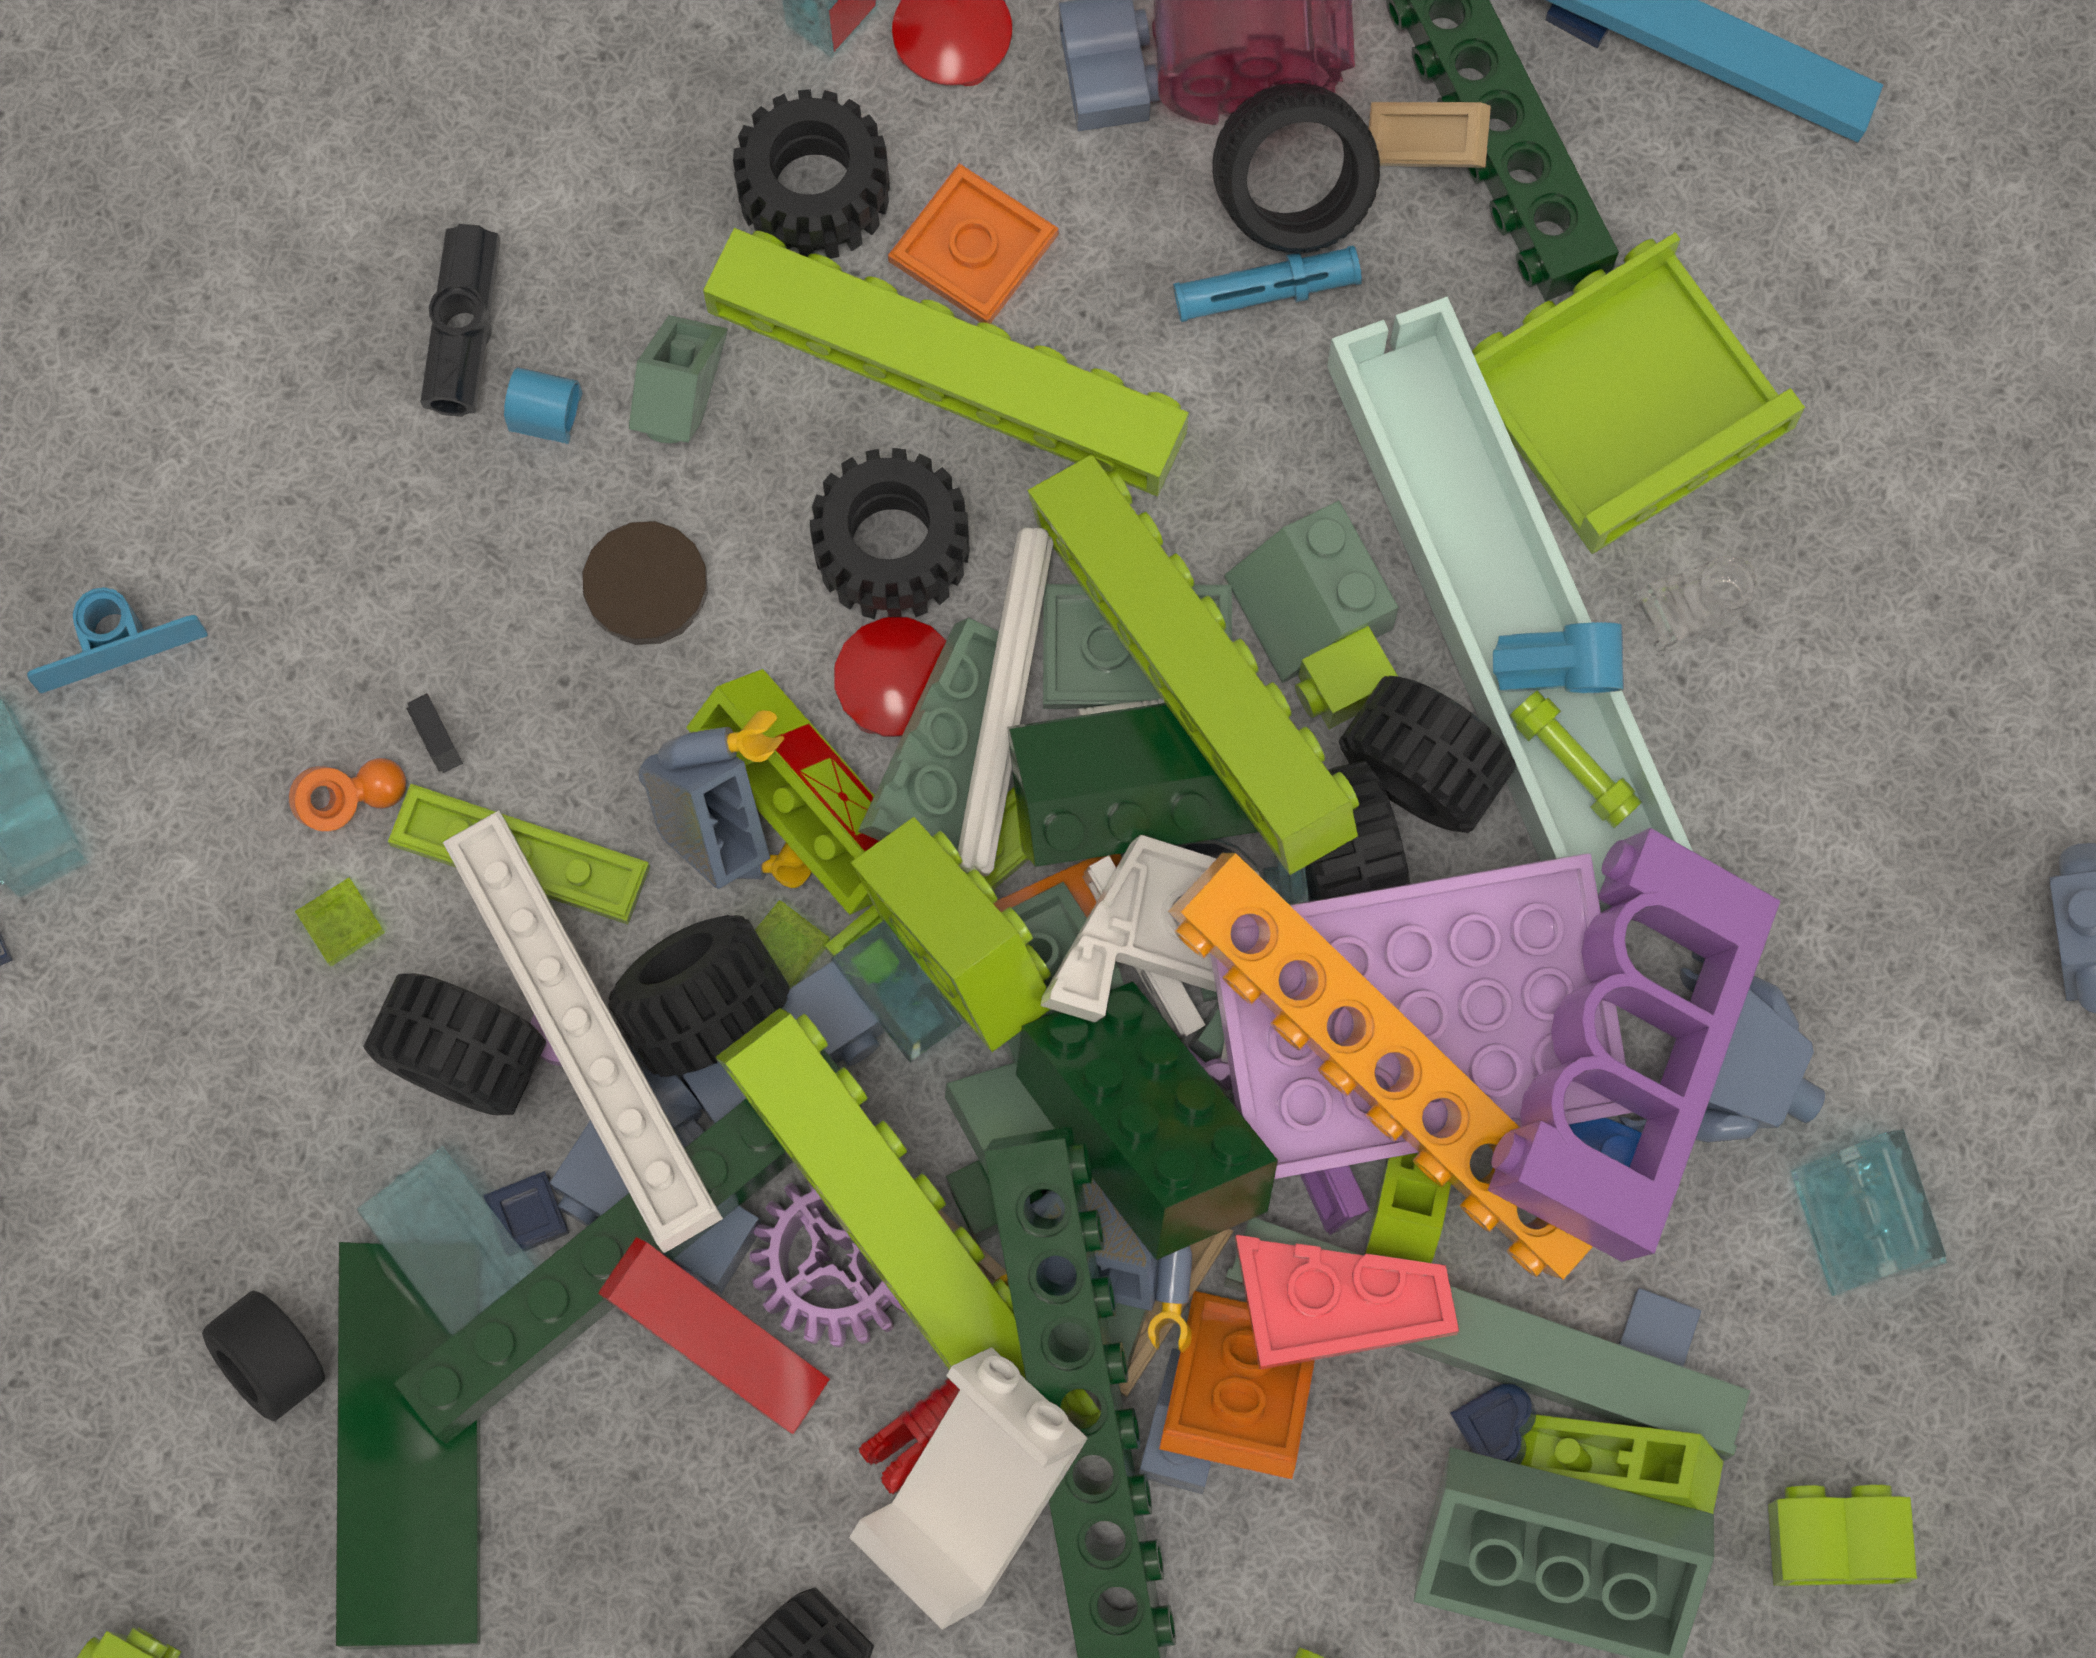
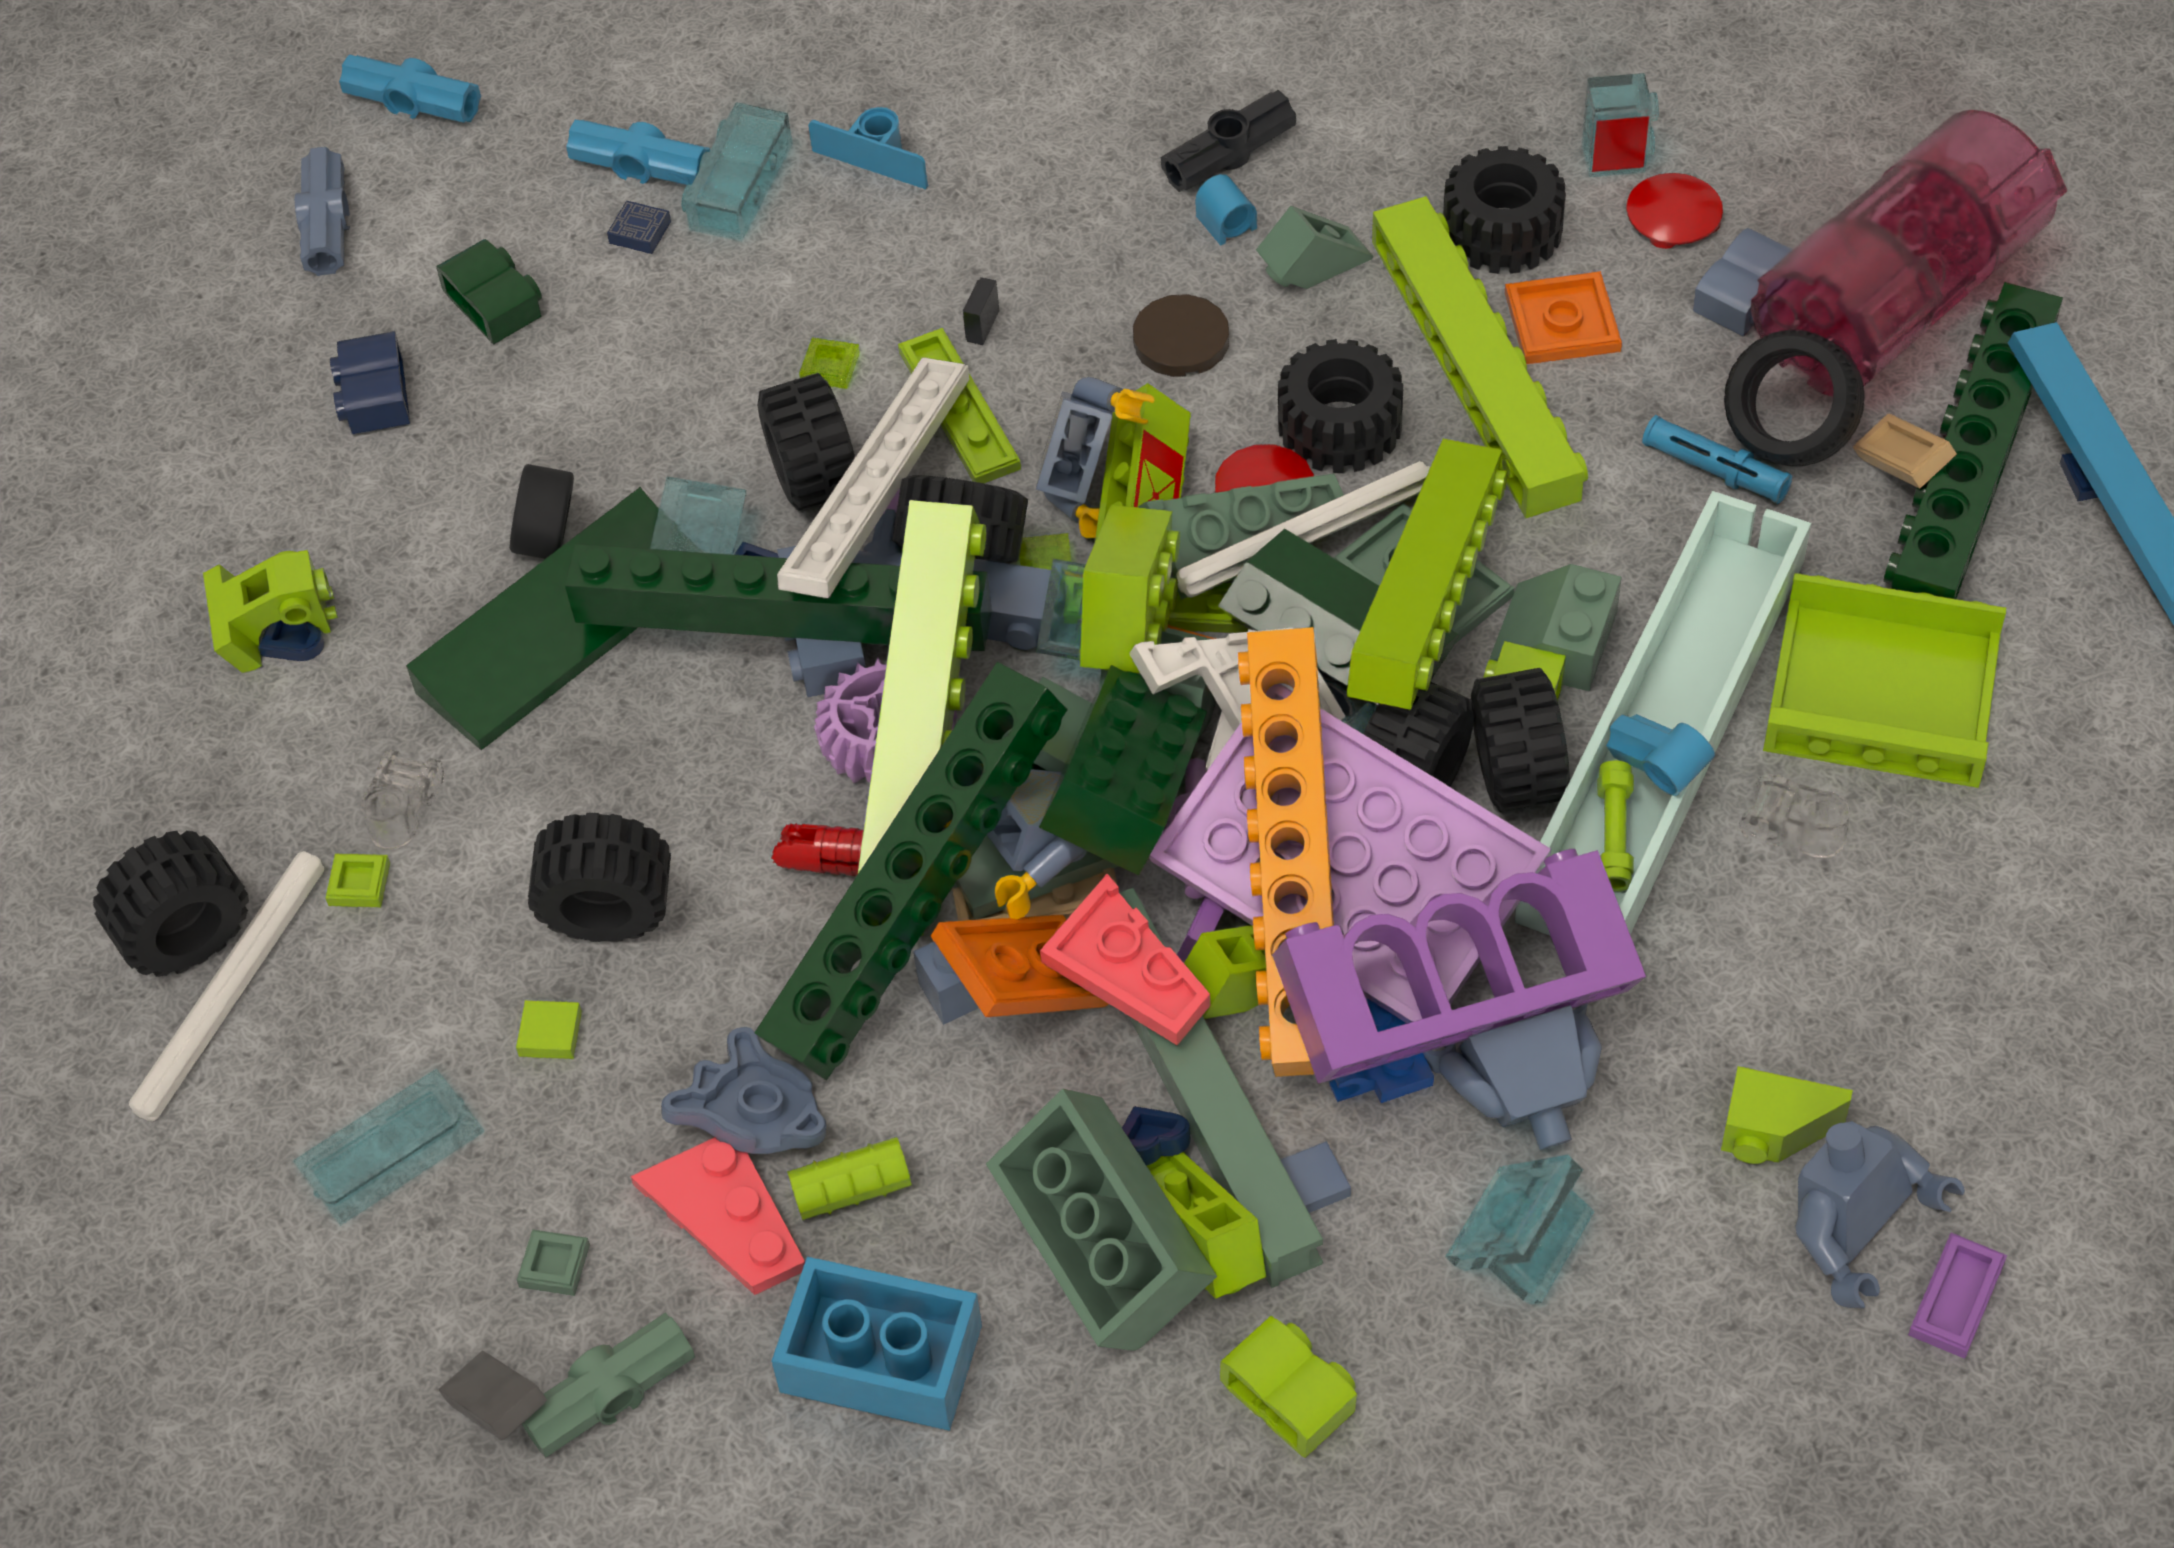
camera: 50 degrees right, 20 degrees down
(377, 784) = (923, 315): orange plate -> none
(713, 1335) = (767, 682): red tile -> none
(972, 1490) = (768, 904): white panel -> none
(1959, 913) = (1779, 1115): none -> lime slope

